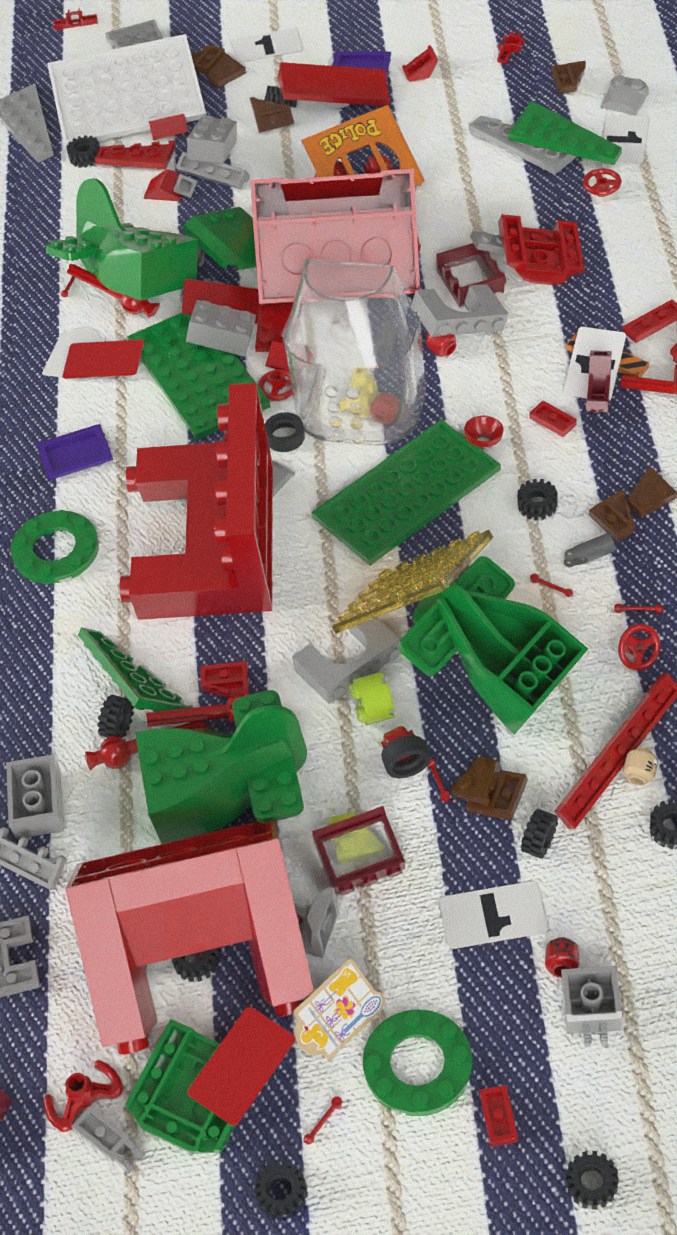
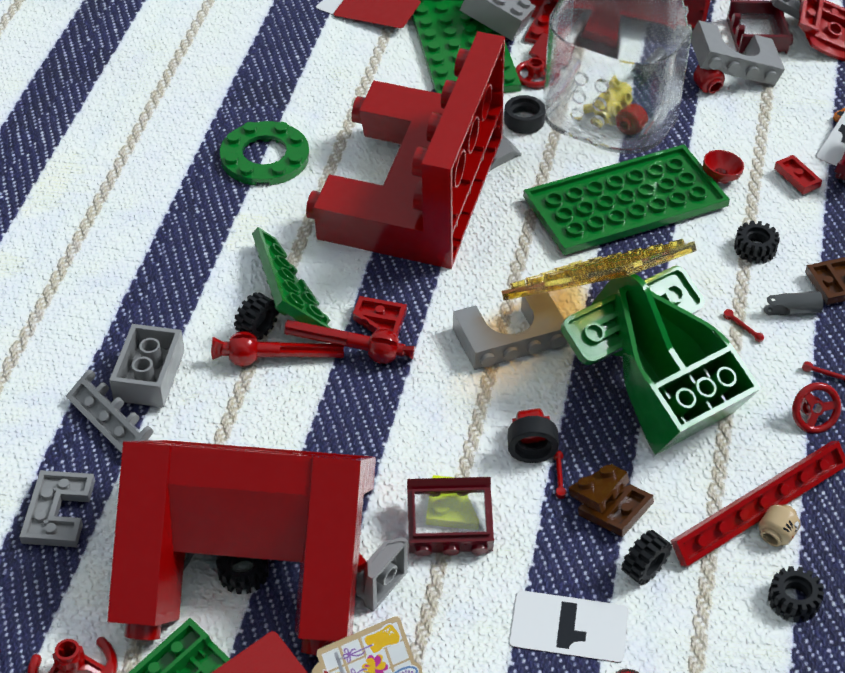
camera: 10 degrees right, 5 degrees down
(74, 452) = (317, 78): dark purple piece -> none
(209, 778) = (324, 398): green brick -> none
(372, 698) = (519, 374): lime brick -> none

